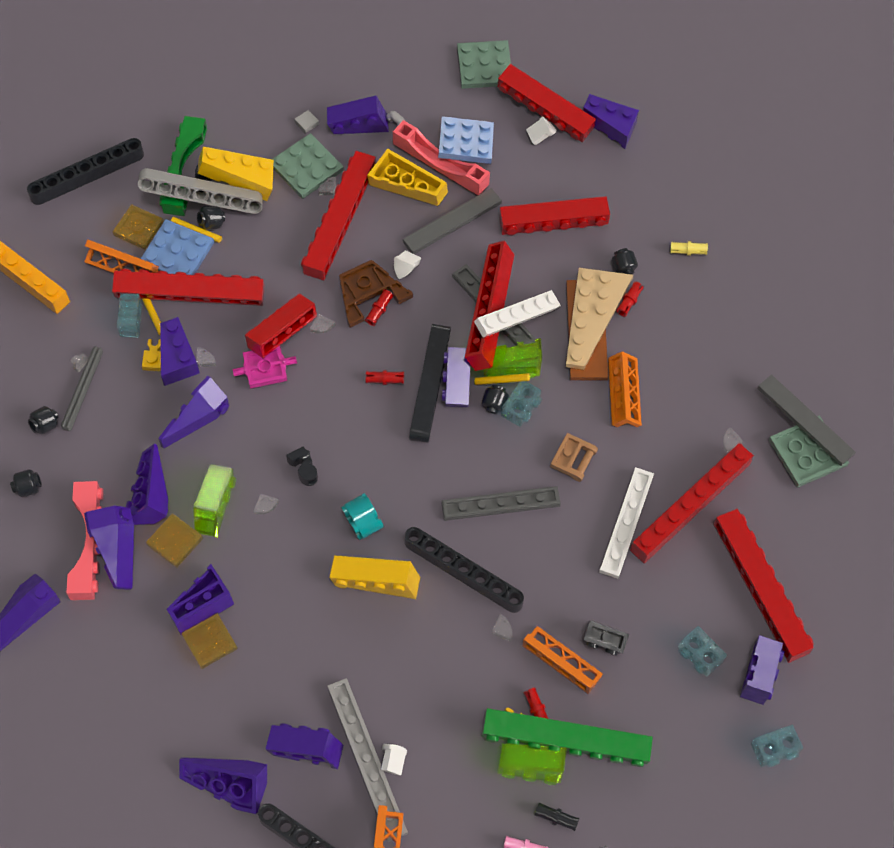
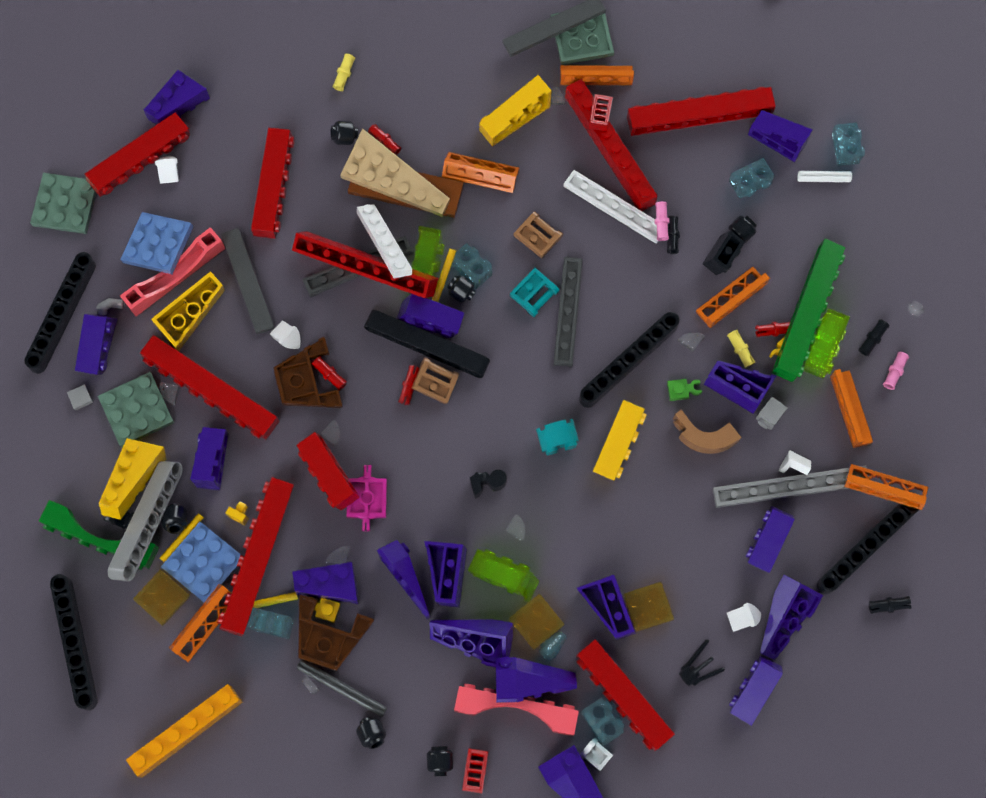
camera: 75 degrees left, 10 degrees up
(29, 523) = (479, 753): none -> red slope
(55, 622) = (596, 754): none -> white tile
(81, 617) = (597, 724): none -> clear light blue brick
(115, 636) = (625, 695): none -> red brick
(119, 362) = (323, 643): none -> reddish brown wing
(143, 760) = (755, 689): none -> dark purple wedge
(149, 695) = (690, 674): none -> black plant
(153, 559) = (552, 646): none -> clear light blue cone
(205, 448) = (447, 571): none -> dark purple wedge
(217, 737) = (744, 617): none -> white tile
(226, 265) = (238, 513): none -> yellow tile
(271, 230) = (210, 458): none -> dark purple wedge
(380, 85) = (60, 321): none -> black beam
(387, 396) = (433, 386): none -> medium nougat plate
(397, 673) = (705, 441): none -> medium nougat arch
(440, 721) = (771, 413): none -> light grey brick
(446, 628) = (680, 389): none -> bright green plate
(462, 684) = (739, 385): none -> dark purple wedge
(469, 806) = (851, 408): none -> orange fence
(505, 678) = (741, 348): none -> light yellow pin
(514, 461) = (530, 287): none -> teal plate
(613, 585) = (674, 234): none -> black pin
(621, 566) = (662, 221): none -> bright pink pin
(640, 653) = (743, 228): none -> black head
(698, 406) = (516, 111): none -> yellow wedge
(704, 471) = (598, 124): none -> red slope
(731, 730) = (824, 176): none -> white axle
(769, 475) = (596, 75): none -> orange fence

